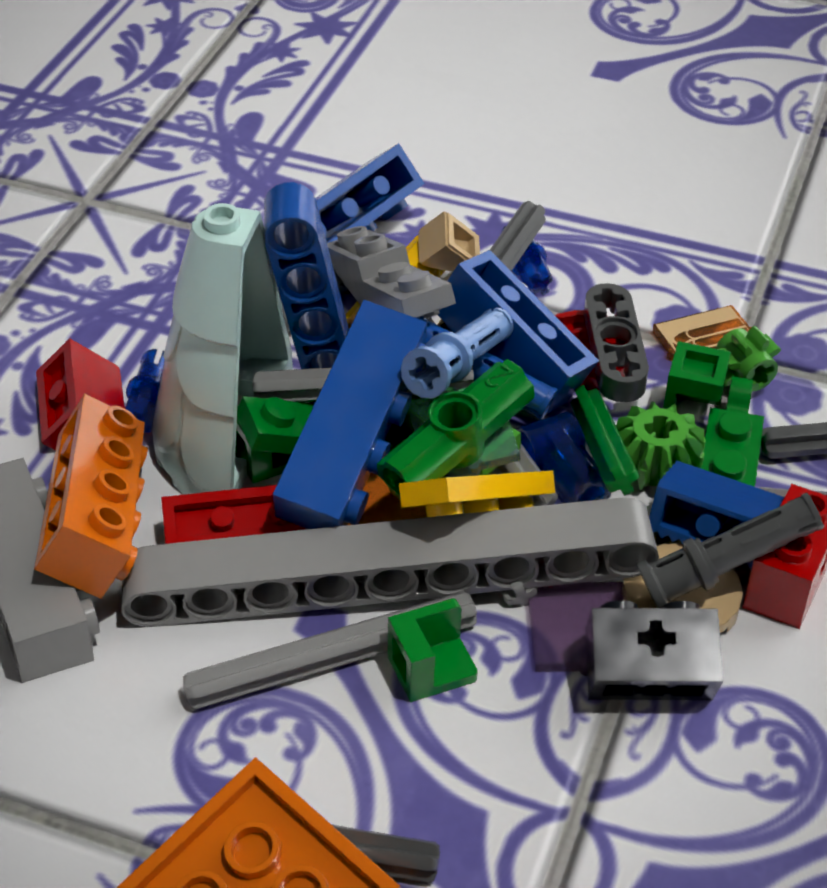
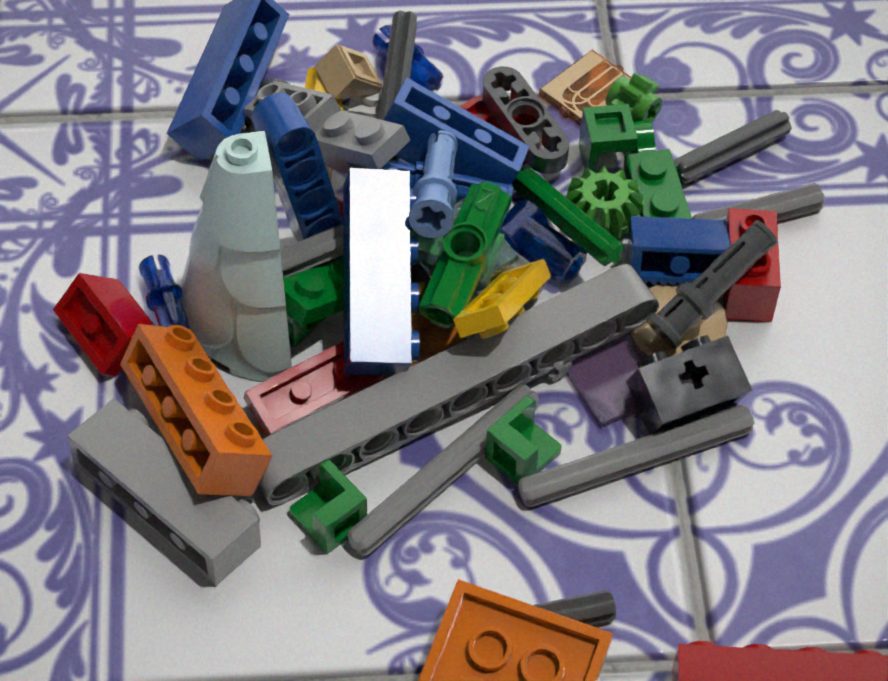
camera: 25 degrees left, 10 degrees up
(180, 646) = (330, 508): none -> green panel
(558, 711) = (635, 455): none -> light grey axle

